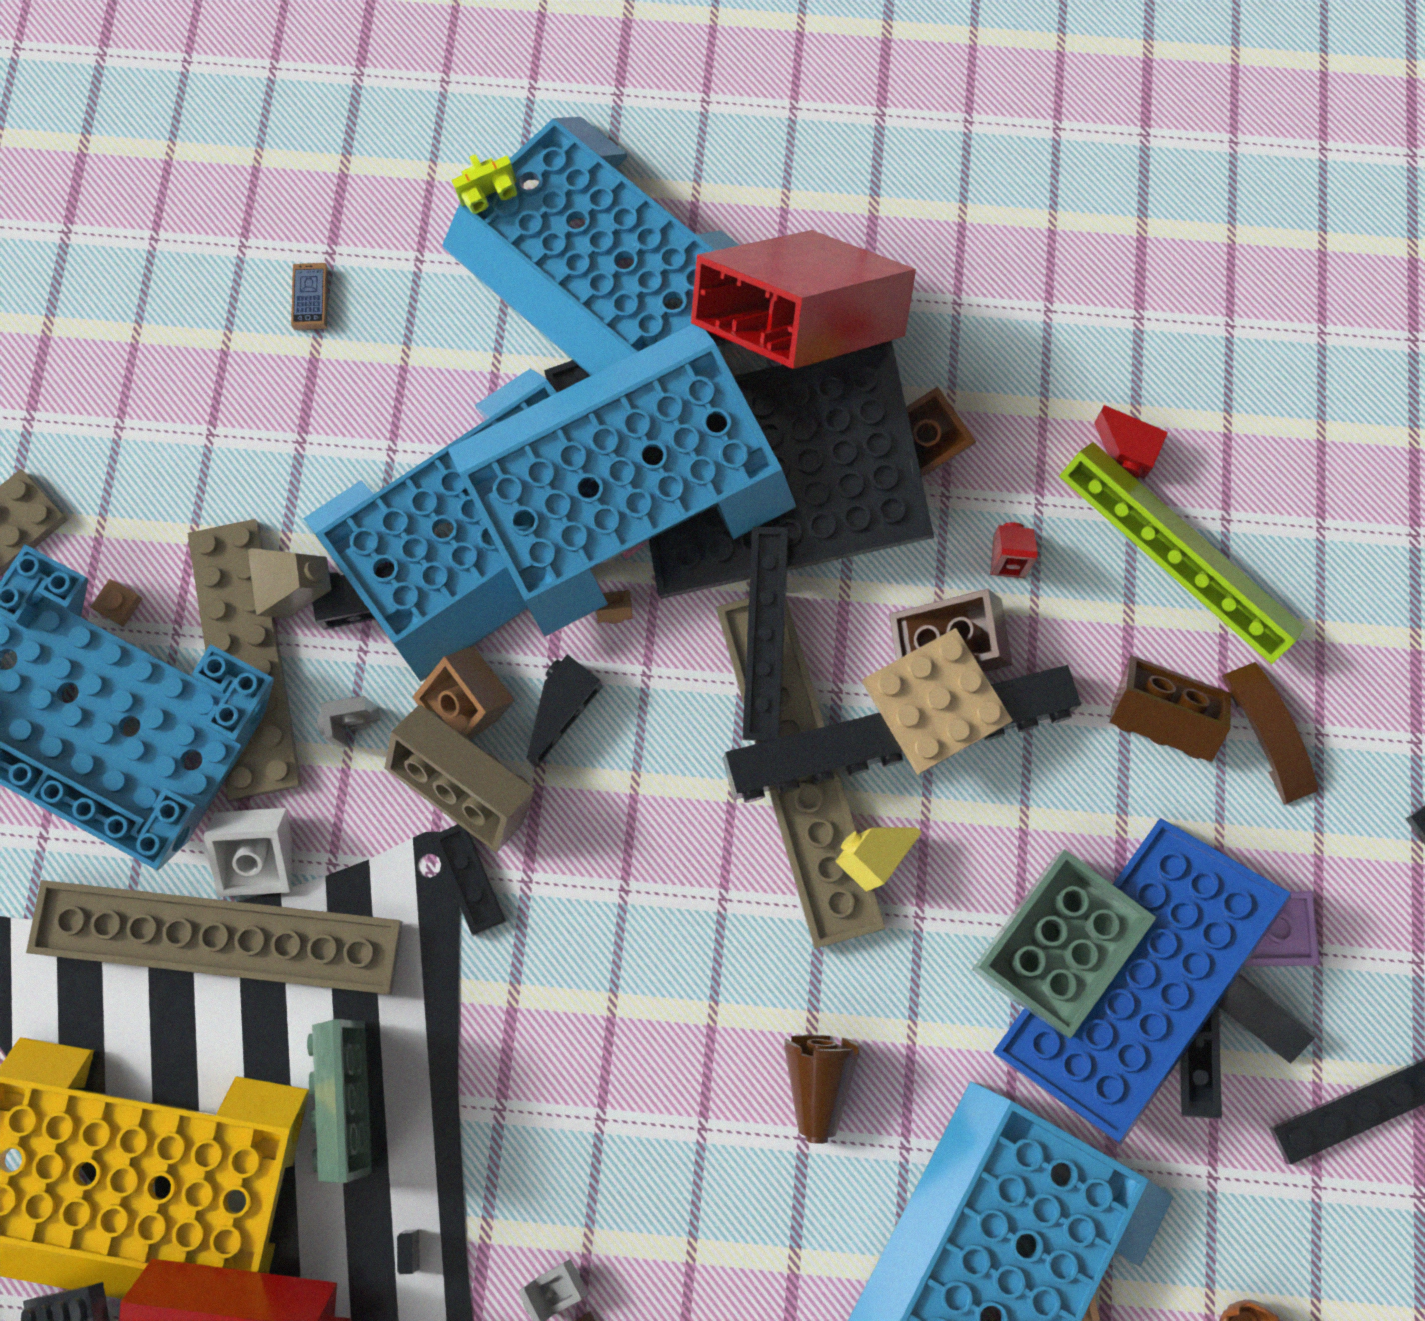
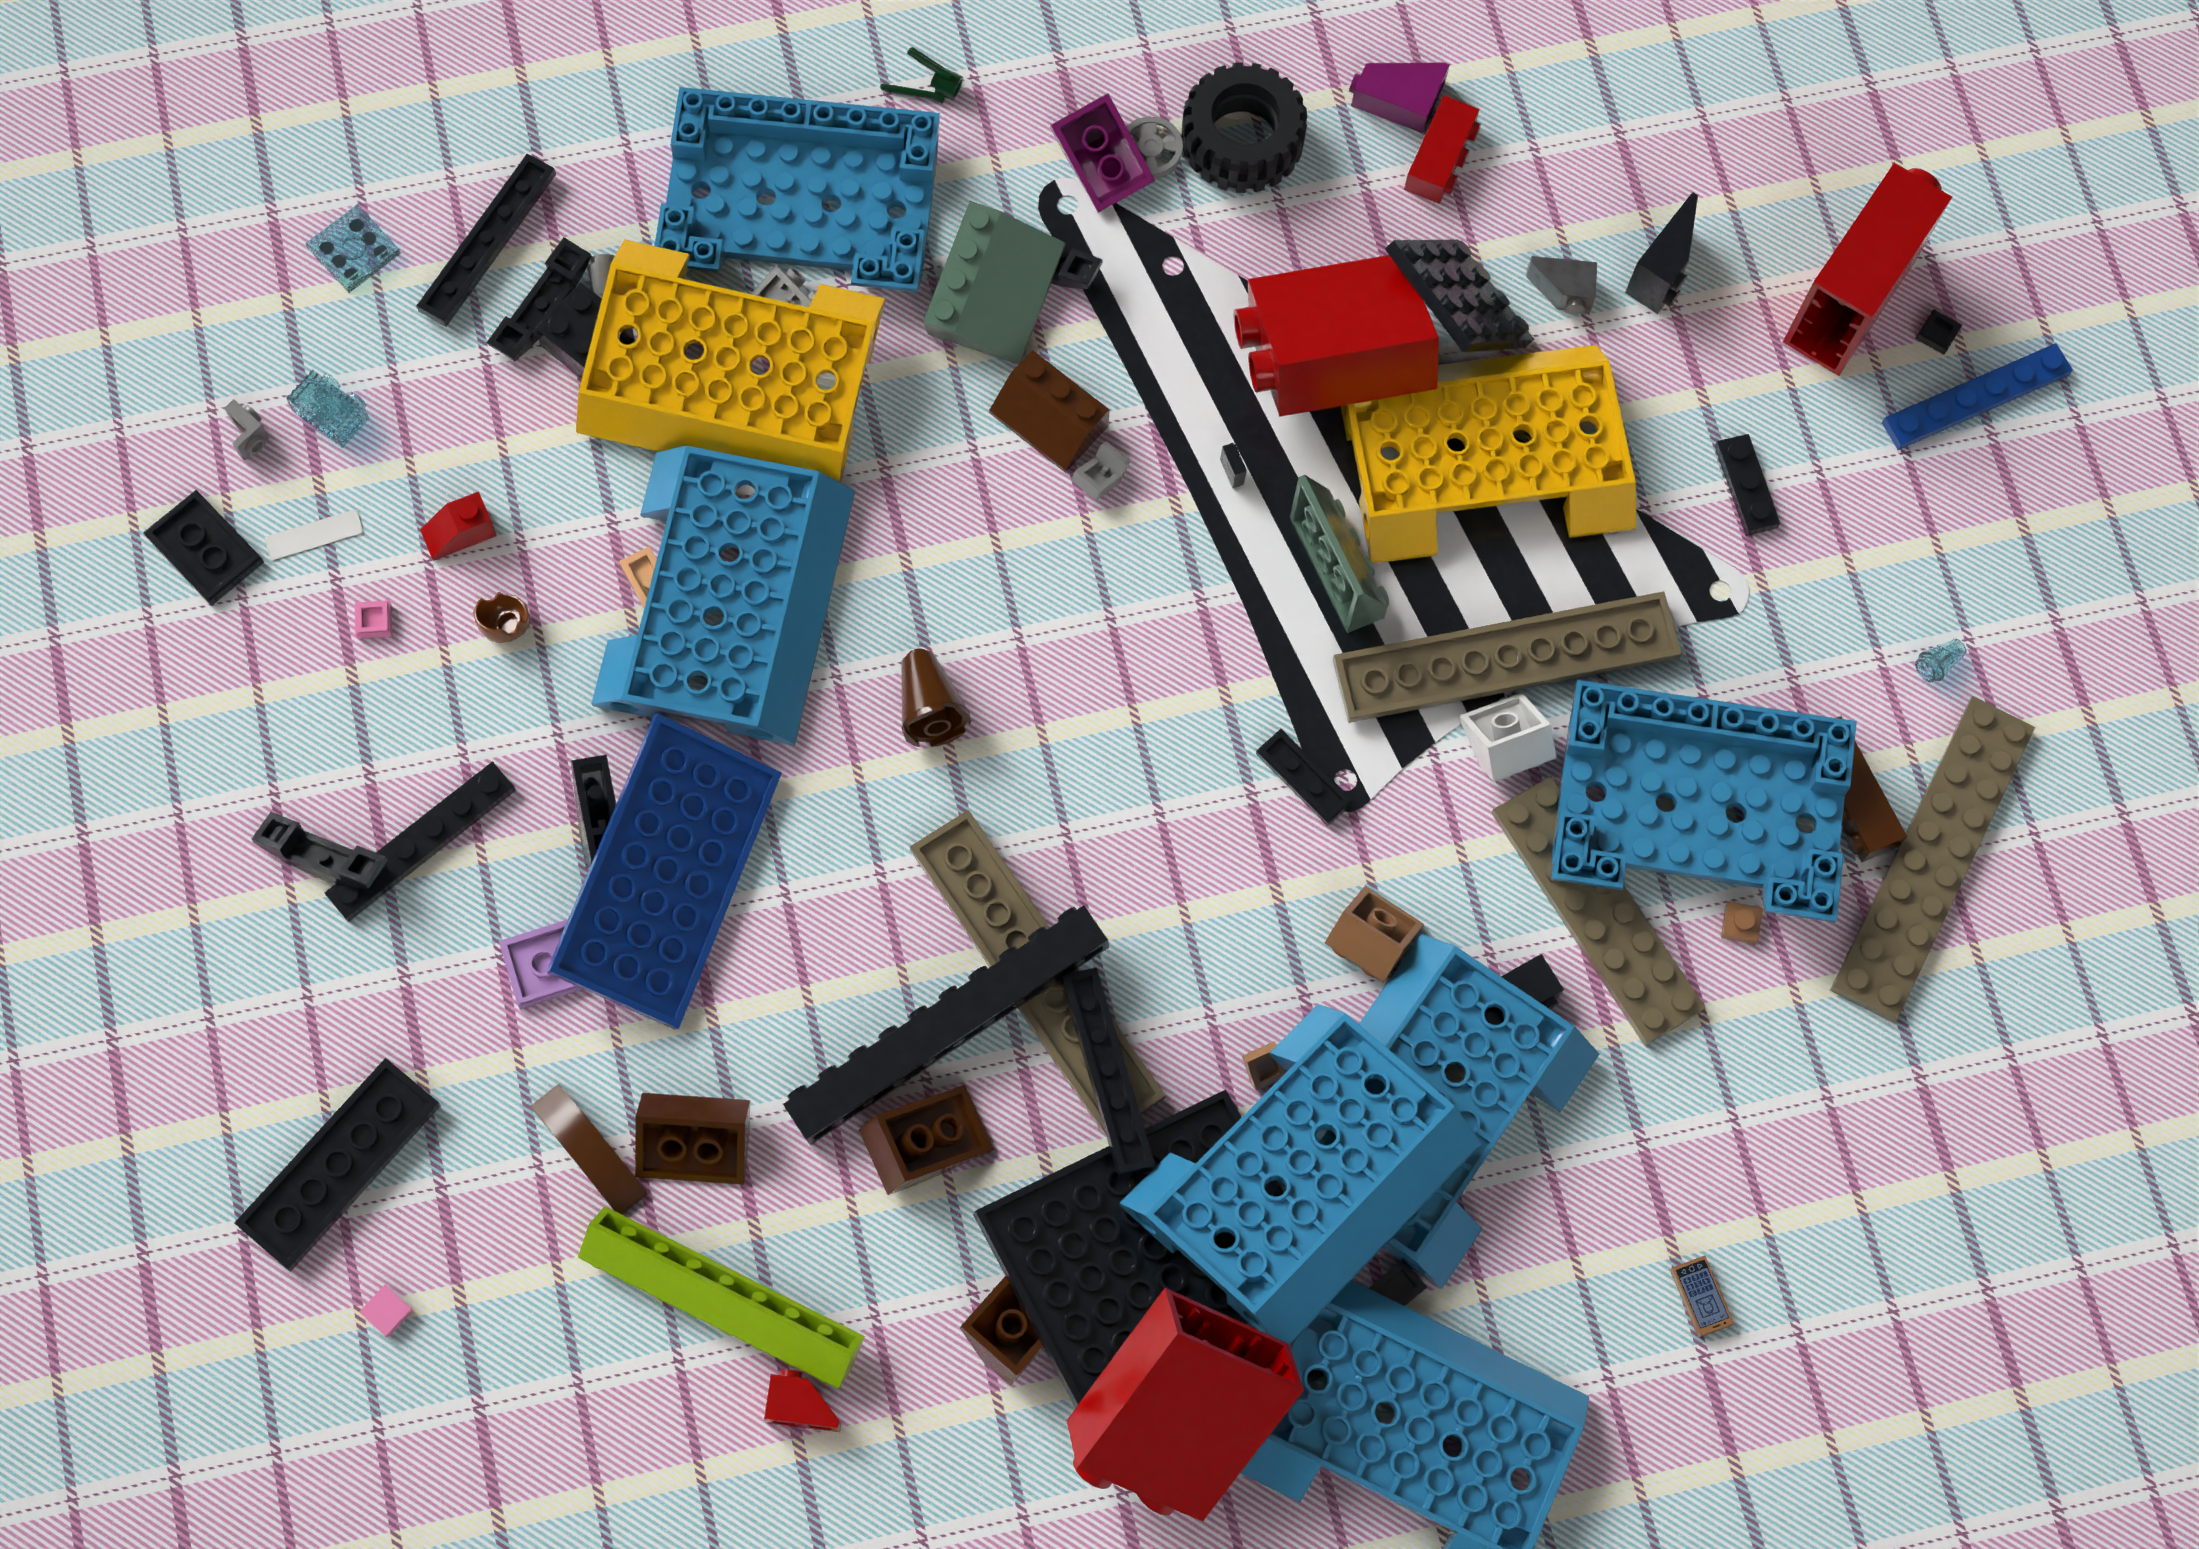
camera: 155 degrees right, 5 degrees down
(286, 581) = (1587, 985): dark tan slope -> none
(351, 712) = (1473, 873): light grey bracket -> none
(458, 777) = (1345, 850): dark tan brick -> none
(483, 180) = (1551, 1461): neon yellow hips -> none
(562, 701) = (1280, 959): black slope -> none
(876, 853) = (937, 905): light yellow slope -> none
(936, 701) = (923, 1054): tan plate -> none
(1013, 550) = (890, 1244): red slope -> none
(1064, 943) = (744, 879): sand green slope -> none
(1266, 1019) = (539, 877): black tile -> none

